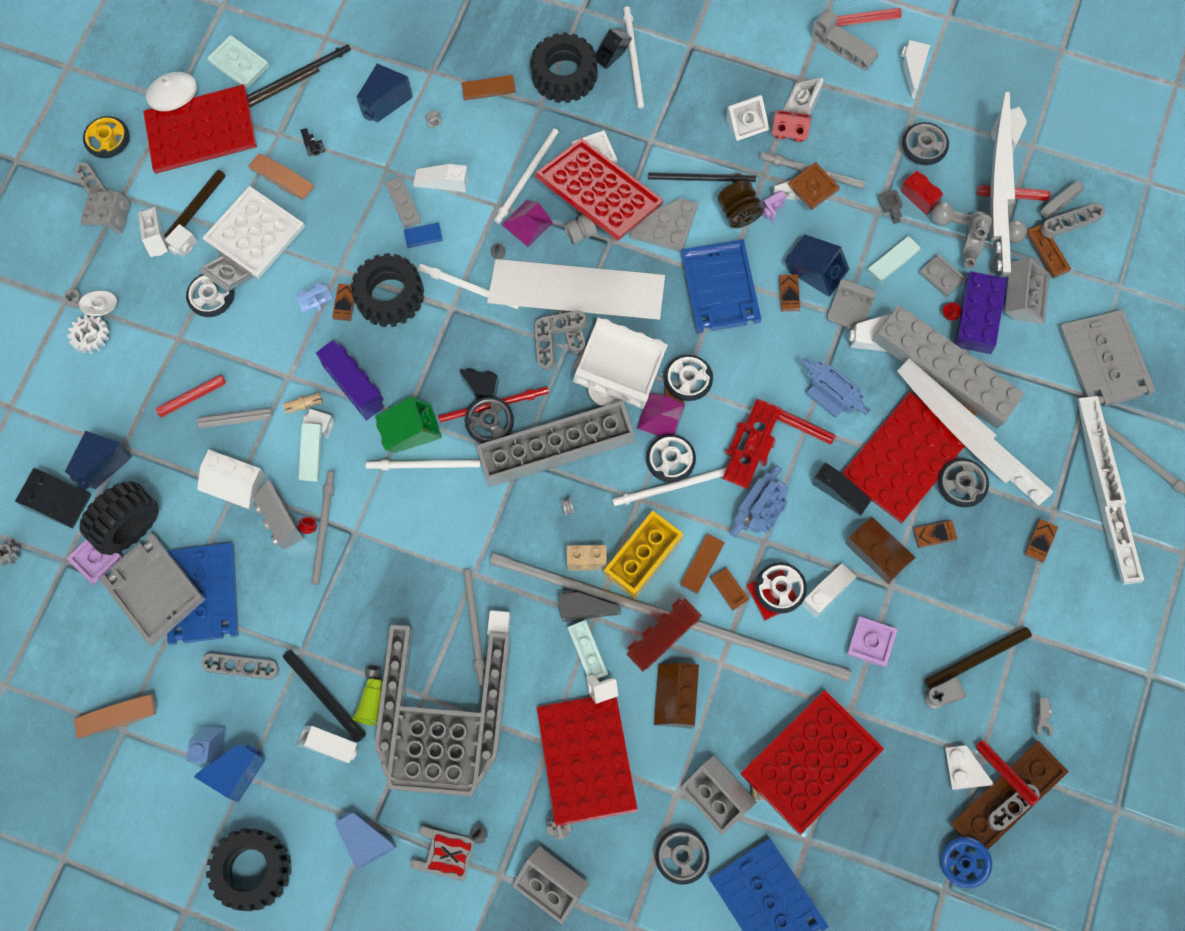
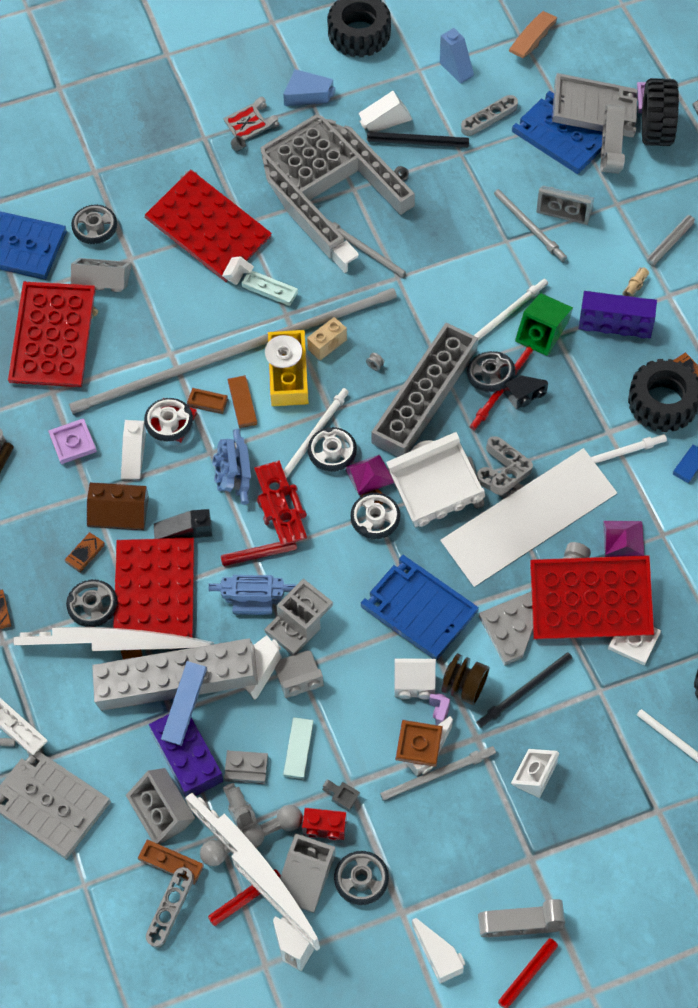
camera: 135 degrees right, 10 degrees down
(182, 535) = (611, 153): none -> light grey beam
(229, 479) = (627, 204): white slope -> none
(232, 771) = (424, 55): blue slope -> none
(307, 525) = (540, 216): red plate -> none
(310, 452) = (591, 254): light aqua tile -> none
(320, 418) = (608, 277): white brick -> none
(369, 704) = (380, 147): lime plant -> none
(501, 252) = (618, 500): dark grey hinge -> none
(503, 211) = (651, 531): white bar -> none
(550, 884) = (165, 153): light grey slope -> none
(581, 606) = (300, 308): dark grey slope -> none
(638, 547) = (283, 345): none -> white dish
(664, 634) = (222, 323): clear red brick -> none
(676, 695) = (181, 307): reddish brown slope -> none
(773, 235) = (414, 678): none -> white slope
(789, 293) = (359, 649): dark orange tile -> none
(791, 125) = (492, 792): brick -> none
(804, 96) = (506, 832): white slope -> none
(818, 264) = (357, 685): dark blue slope -> none
(818, 339) = (298, 617): none -> light grey bracket
(952, 311) = (212, 737): red plate -> none
(959, 173) = (307, 870): none -> light grey slope
(963, 327) = (184, 703): none -> medium blue tile
(1062, 200) = (194, 923): light grey beam -> none

